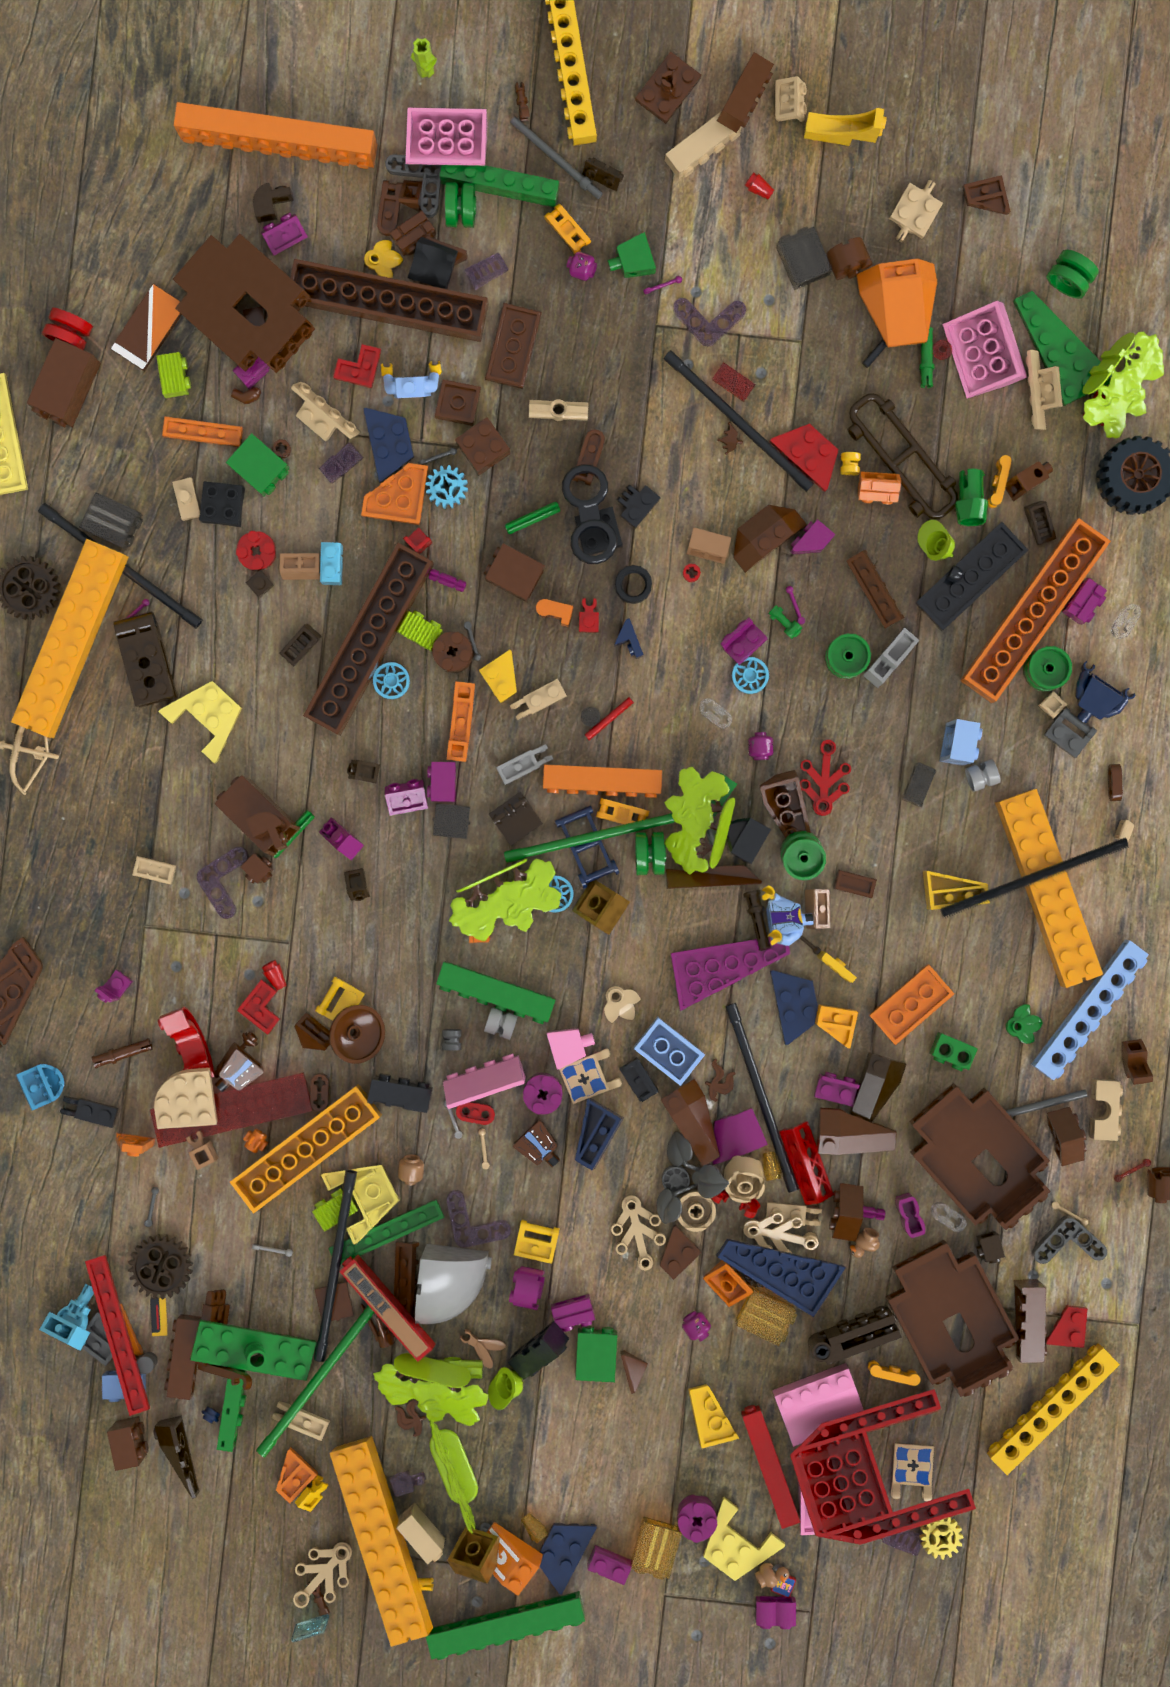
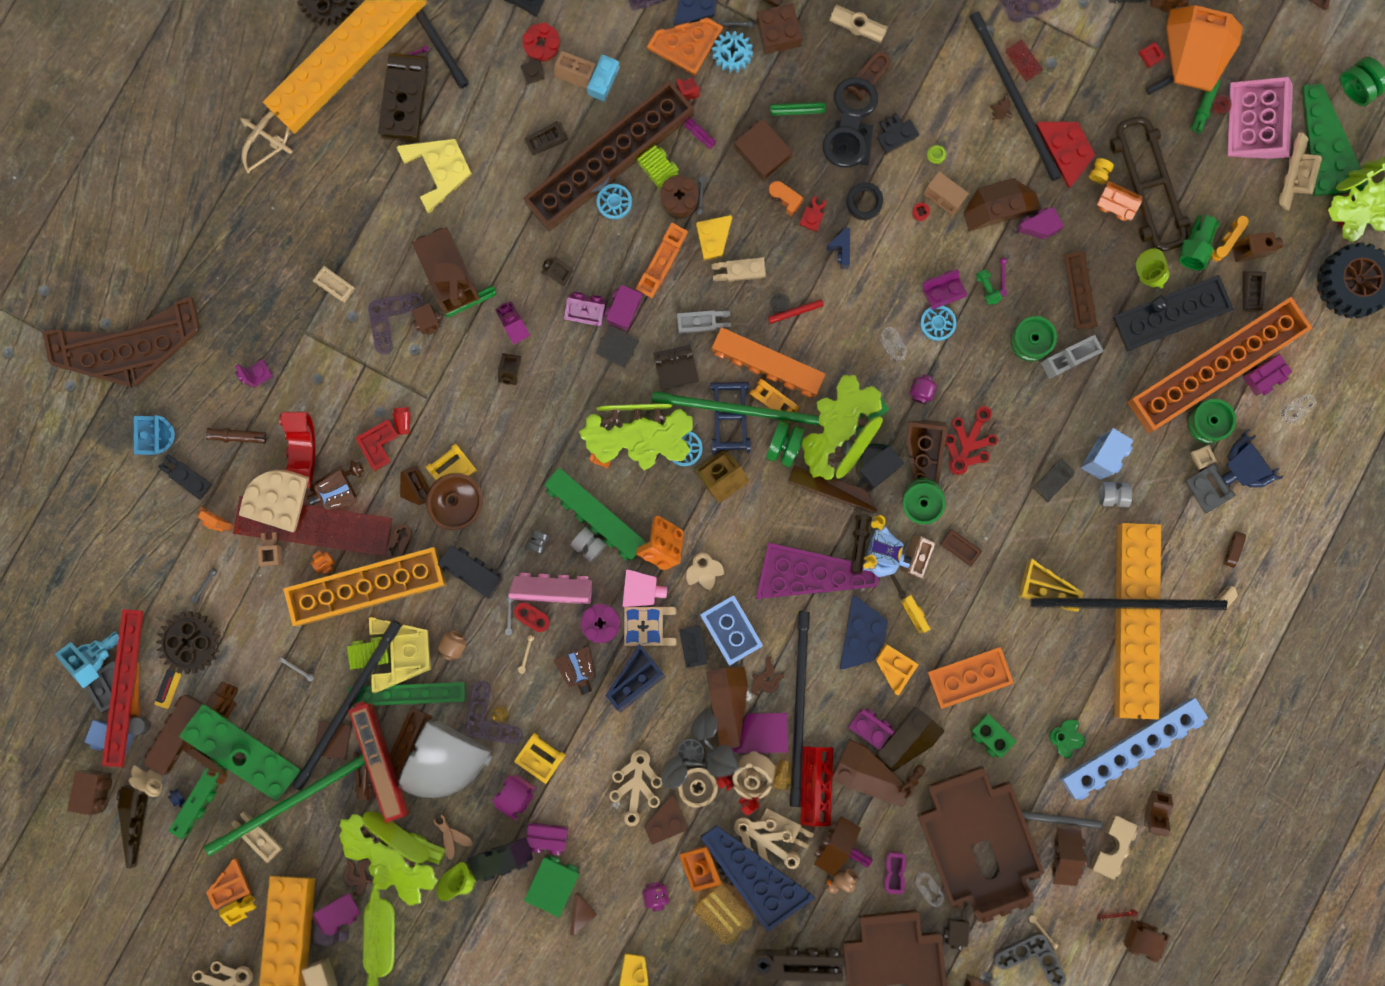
camera: 20 degrees right, 5 degrees down
(176, 1412) = (146, 781): none -> tan plate
(405, 1462) = (335, 914): none -> magenta brick
(482, 1215) = (500, 714): none -> clear yellow hinge
(573, 995) = (664, 545): none -> orange bracket
(684, 510) = (936, 154): none -> lime plate
(855, 326) = (1151, 55): none -> red tile
(894, 1123) = (912, 780): none -> reddish brown piece

